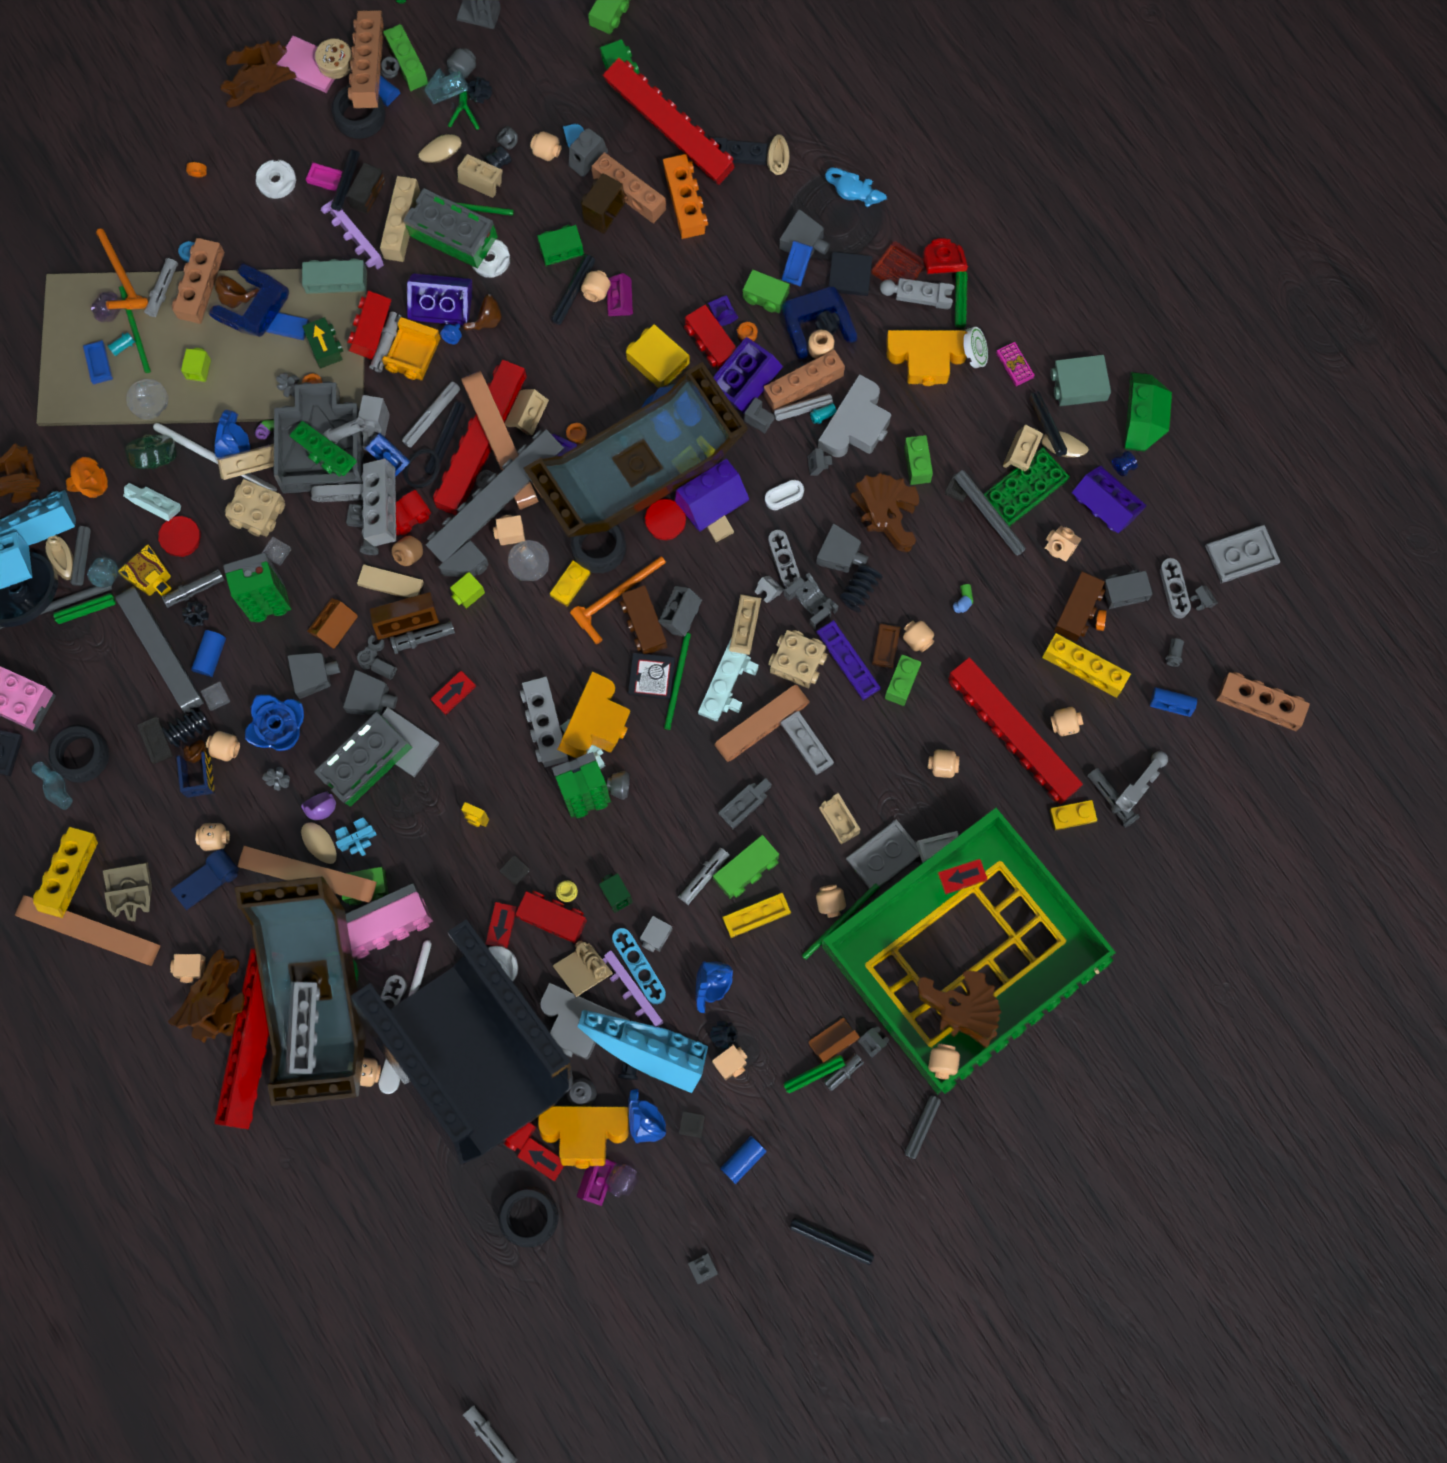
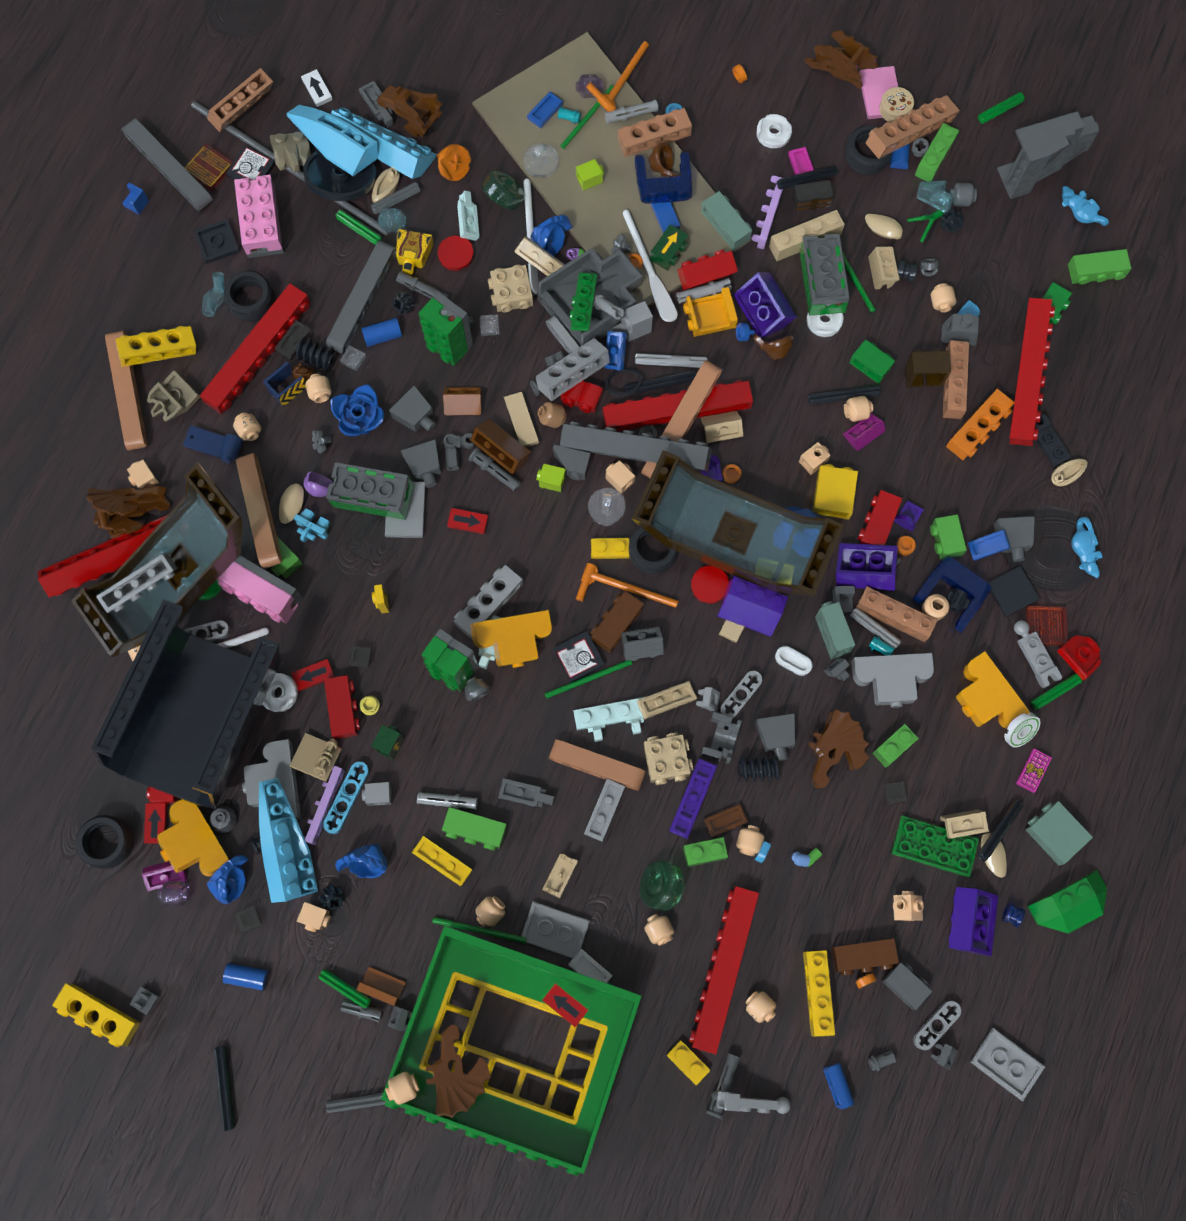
camera: 55 degrees right, 0 degrees up
(138, 781) = (255, 349): none -> red brick
(363, 381) = (661, 296): none -> white piece
(614, 353) = (814, 458): none -> light nougat brick
(660, 1346) = (125, 1024): none -> yellow brick
(783, 440) = (834, 630): none -> sand green brick
(907, 736) = (661, 885): none -> clear green wheel
(938, 634) = (760, 857): none -> dark azure tile
(990, 512) = (892, 831): dark grey axle -> none
(1230, 695) = (906, 1194): nougat brick -> none

